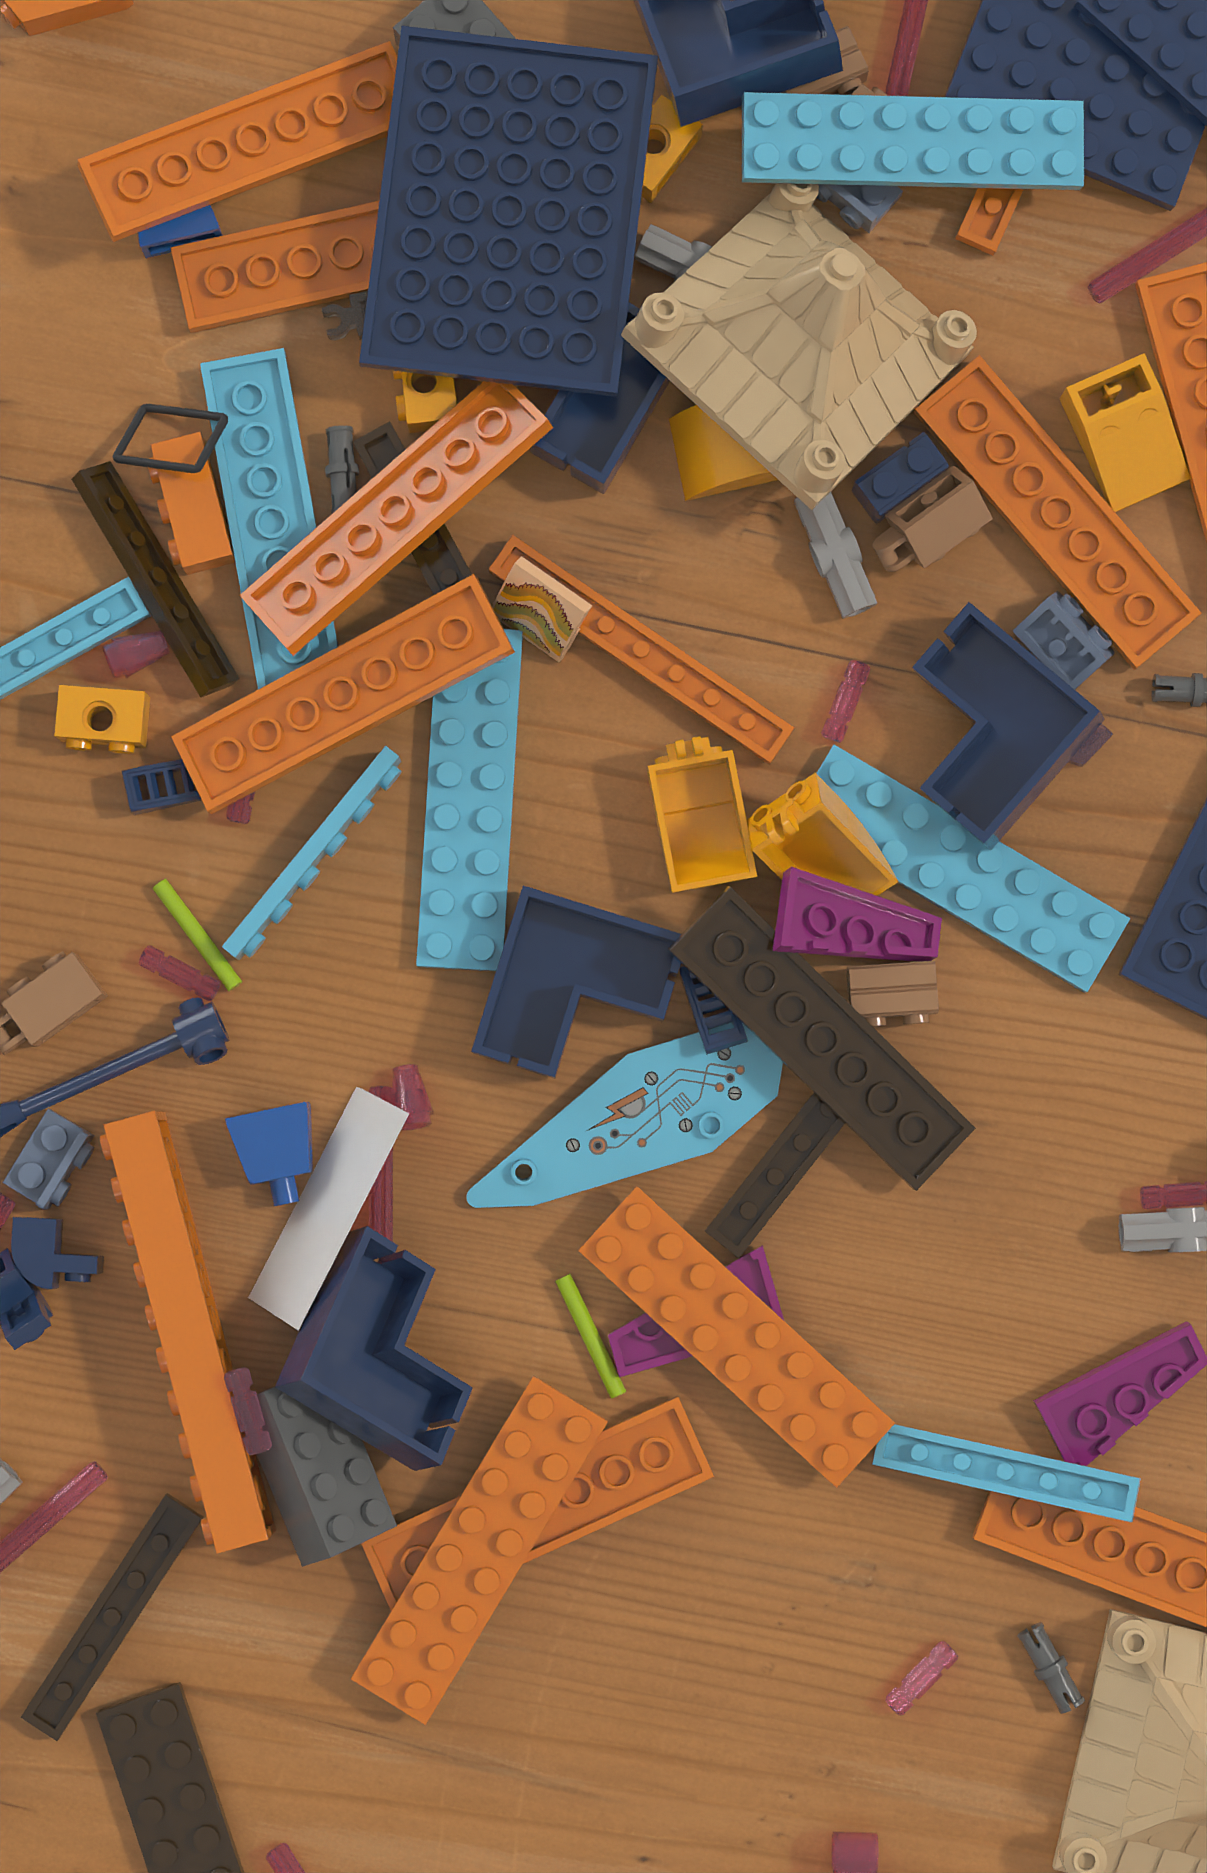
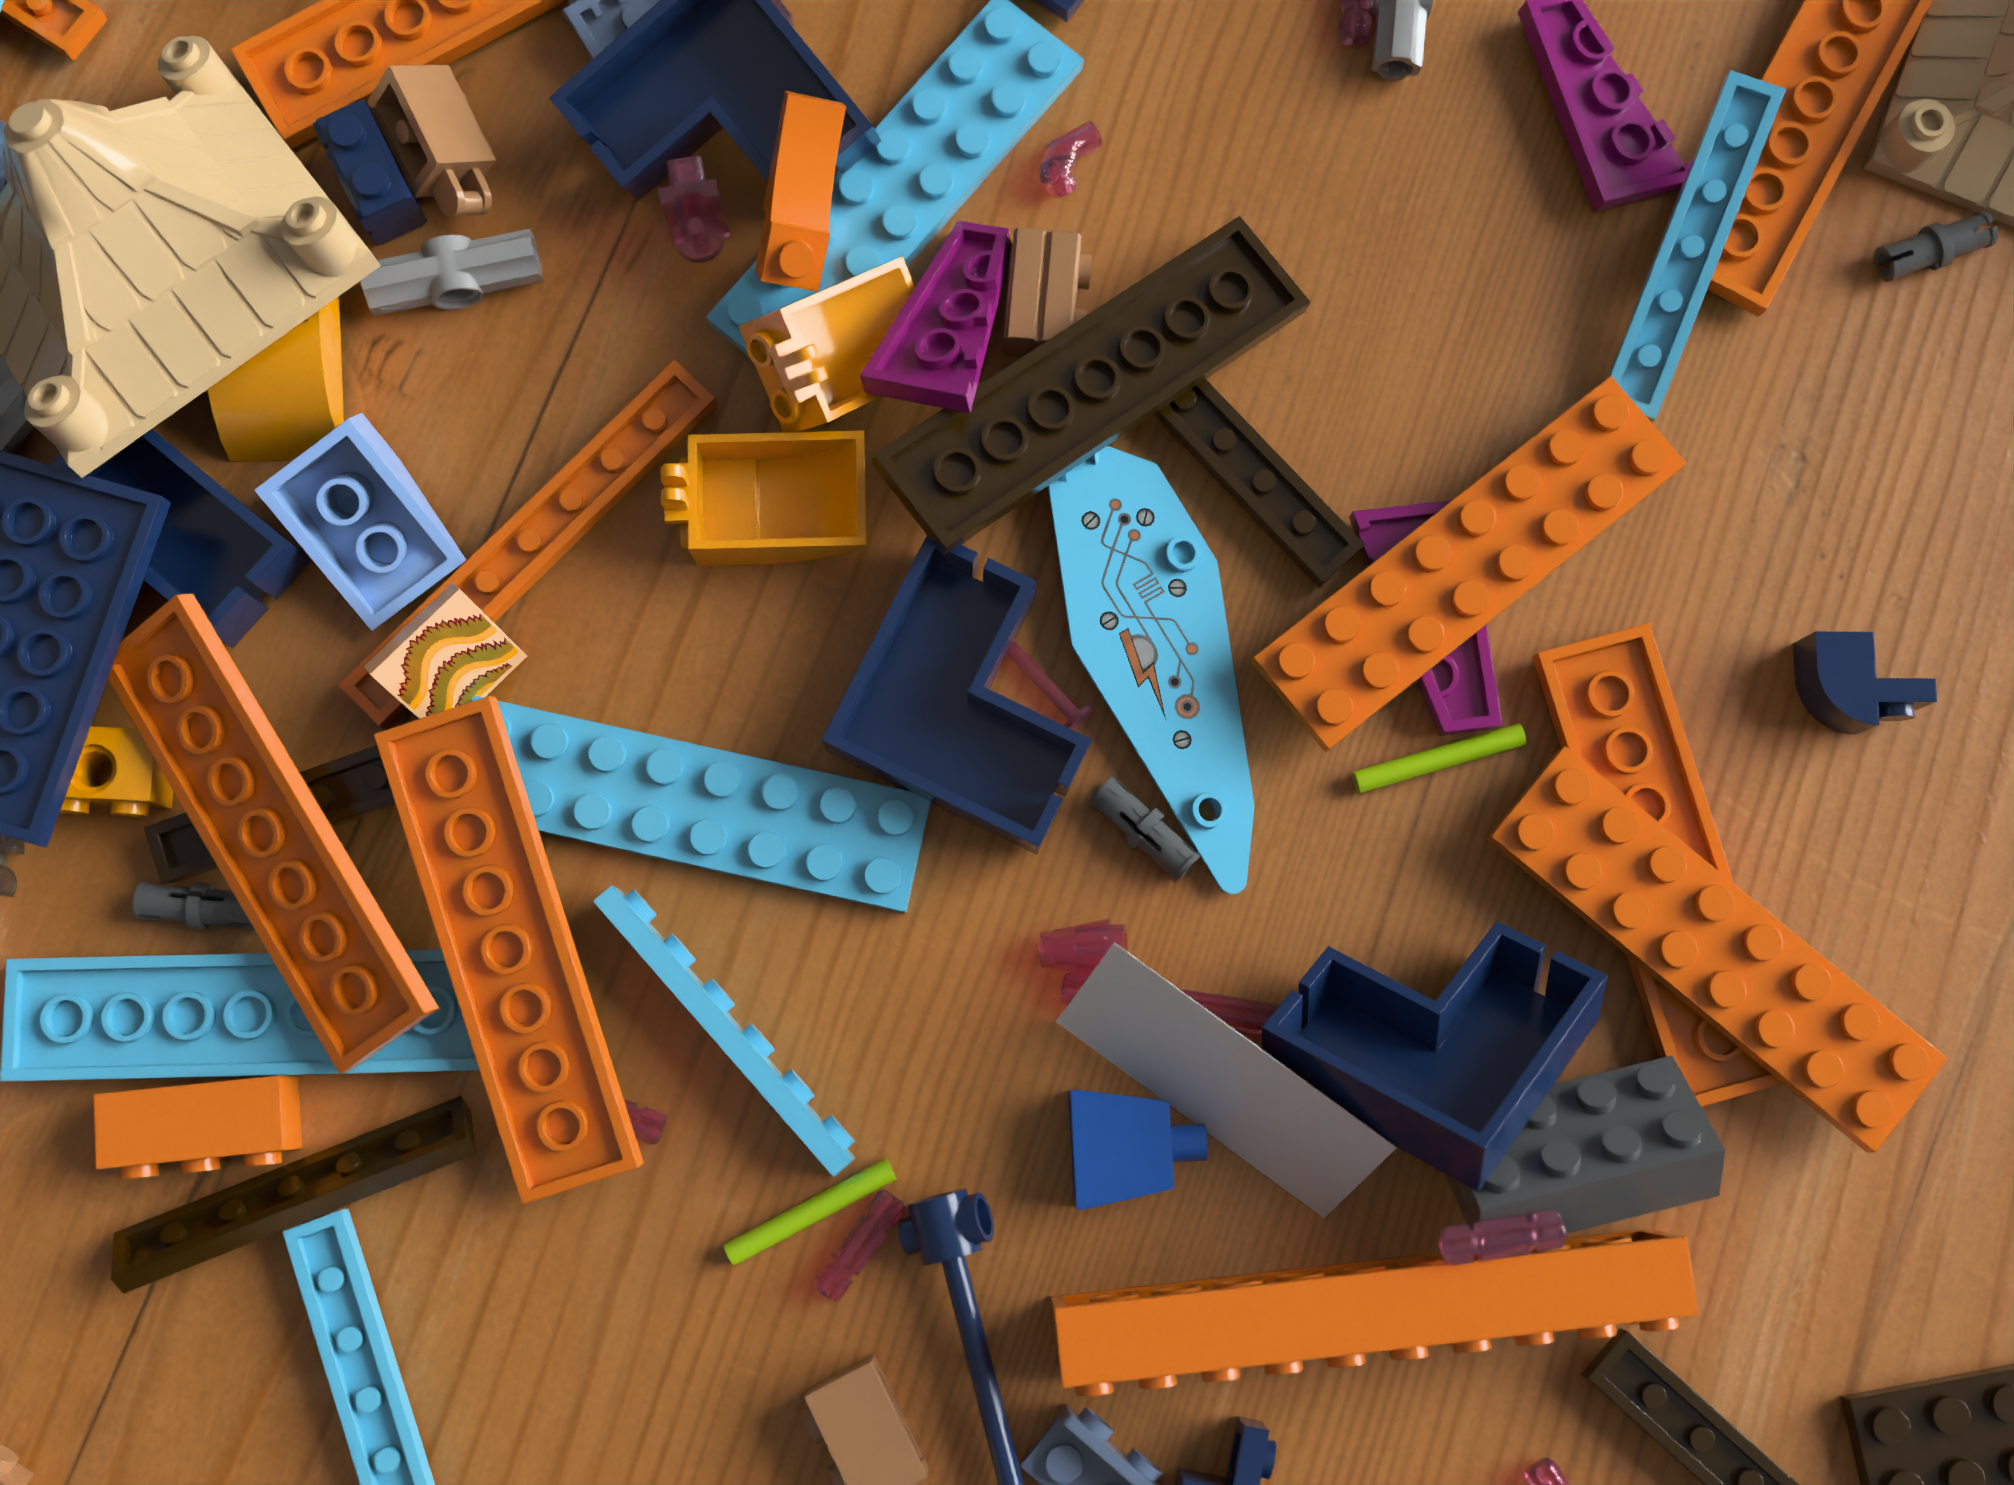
camera: 85 degrees left, 5 degrees down
(80, 704) = (451, 1329): light orange brick -> none
(118, 455) = (82, 1061): black piece -> none
(134, 652) = (394, 1240): clear pink cone -> none
(138, 806) = (568, 1242): dark blue slope -> none
(503, 1128) = (1144, 829): none -> dark grey pin
(595, 1043) = (1046, 685): none -> clear pink pin
(635, 527) = (362, 520): none -> light blue slope
(692, 1624) = (1842, 687): none -> dark blue brick
(715, 1042) = (996, 539): dark blue slope -> none
(845, 701) = (652, 294): clear pink axle -> none
(904, 723) = (694, 210): none -> clear pink hips
(920, 799) = (800, 192): none -> orange slope
(921, 1678) = (1933, 407): clear pink axle -> none
(1006, 987) = (1061, 158): none -> clear pink arm

